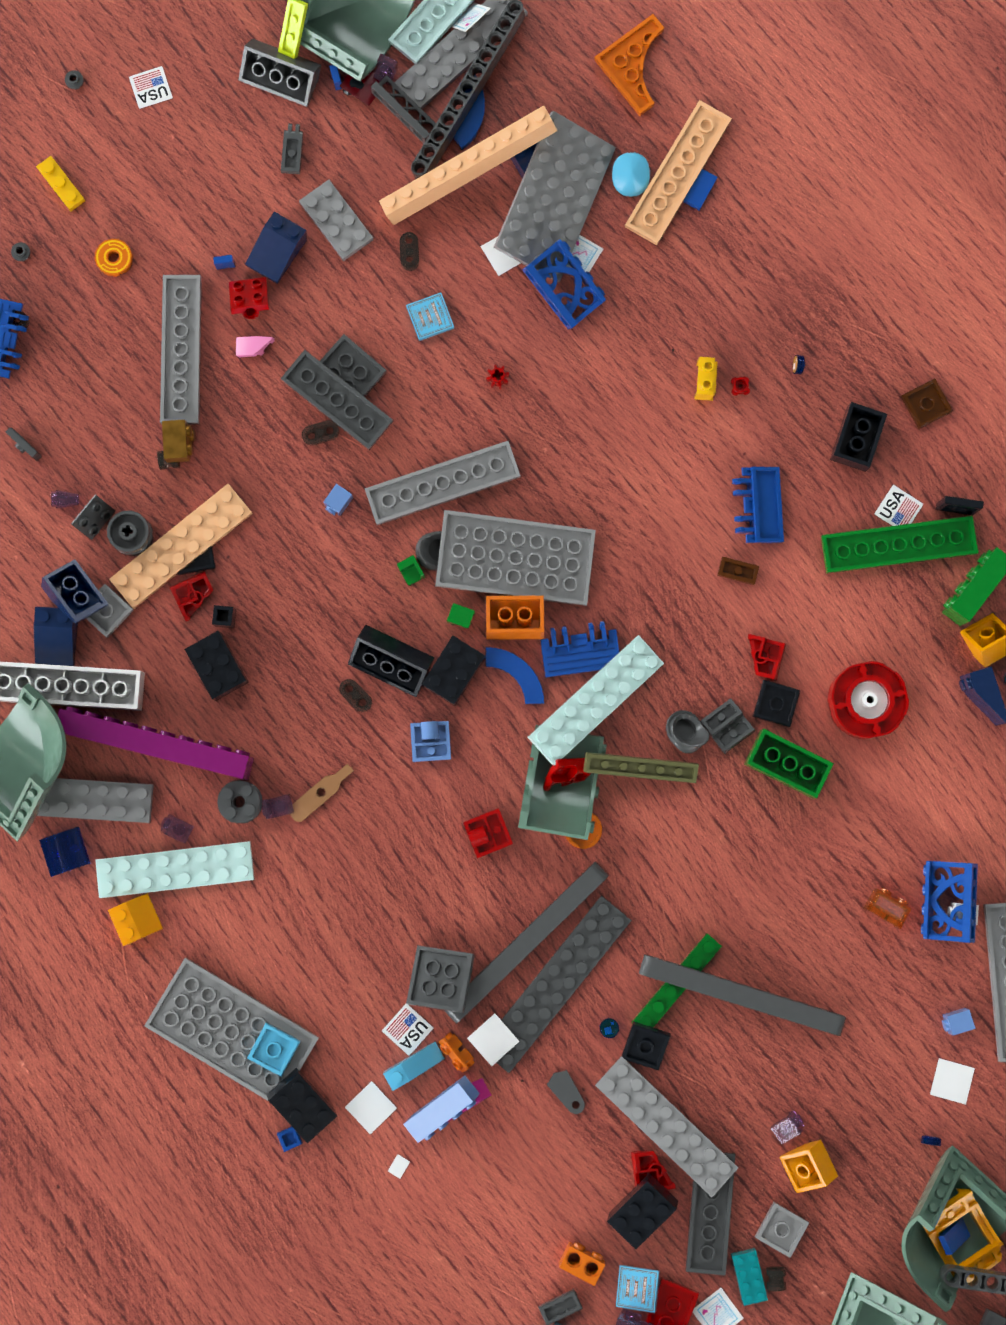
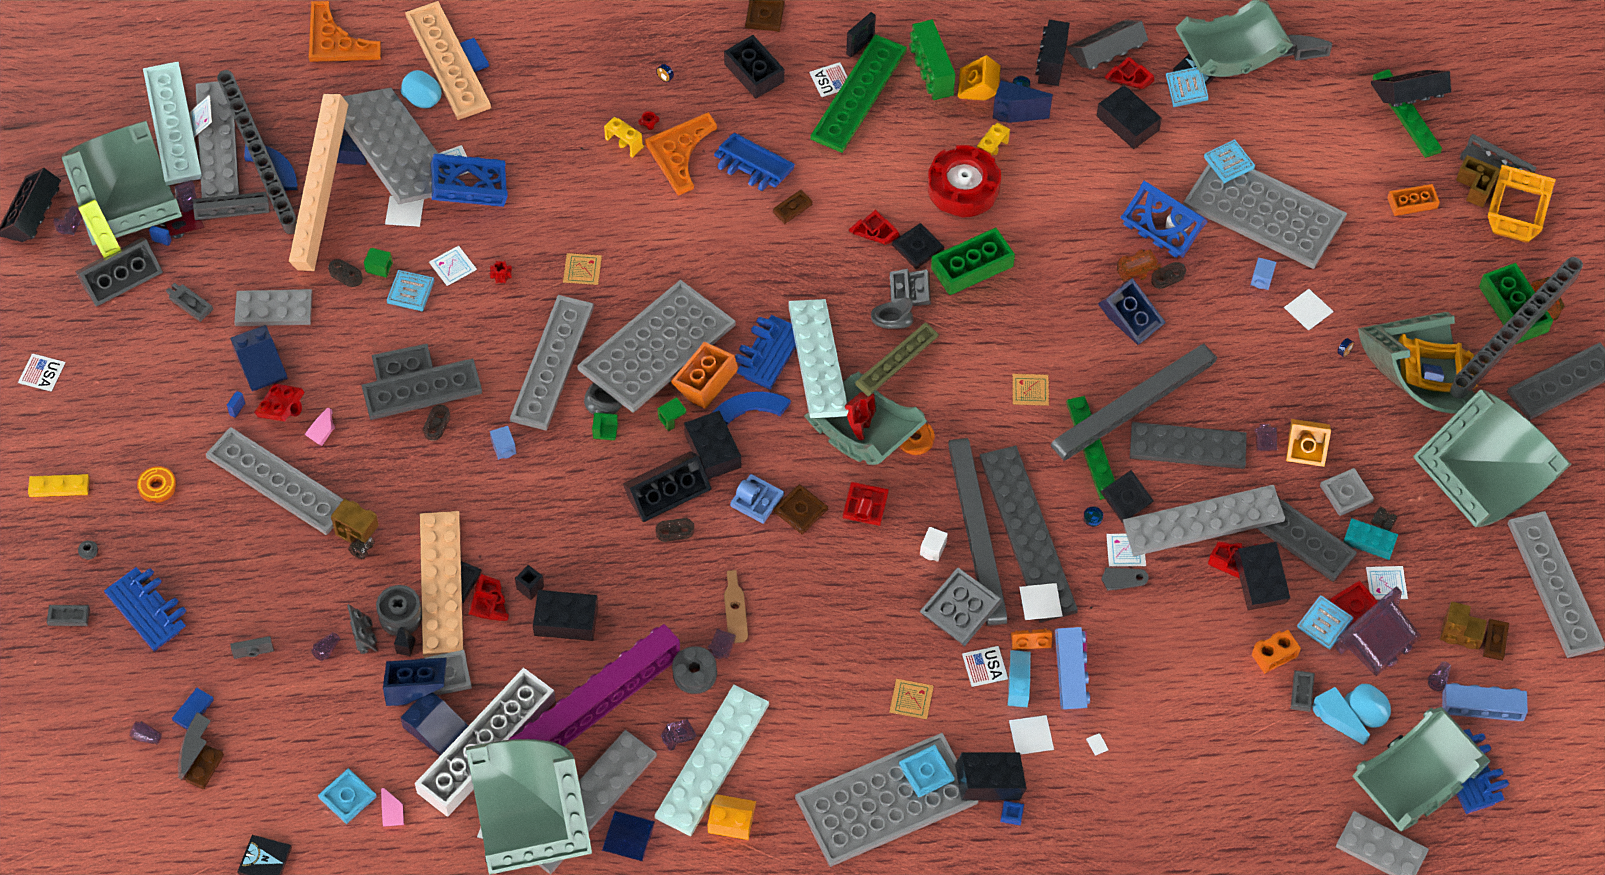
camera: 55 degrees left, 25 degrees down
(108, 557) = (404, 642): none -> black slope
(337, 989) = (911, 699): none -> clear orange sticker
(435, 271) = (378, 262): none -> green panel
(447, 782) = (800, 509): none -> reddish brown tile
(480, 331) = (452, 265): none -> white sticker
(486, 915) = (933, 544): none -> white brick
(552, 439) = (582, 269): none -> clear orange sticker
(592, 1071) = (1120, 552): none -> white sticker
(699, 894) = (1030, 389): none -> clear orange sticker
(725, 428) = (673, 149): none -> orange plate
(735, 1064) = (1188, 445): none -> dark grey plate
(836, 932) = (1132, 311): none -> dark blue slope
(897, 939) = (1167, 275): none -> clear smoke plate
(928, 696) = (992, 139): none -> yellow window

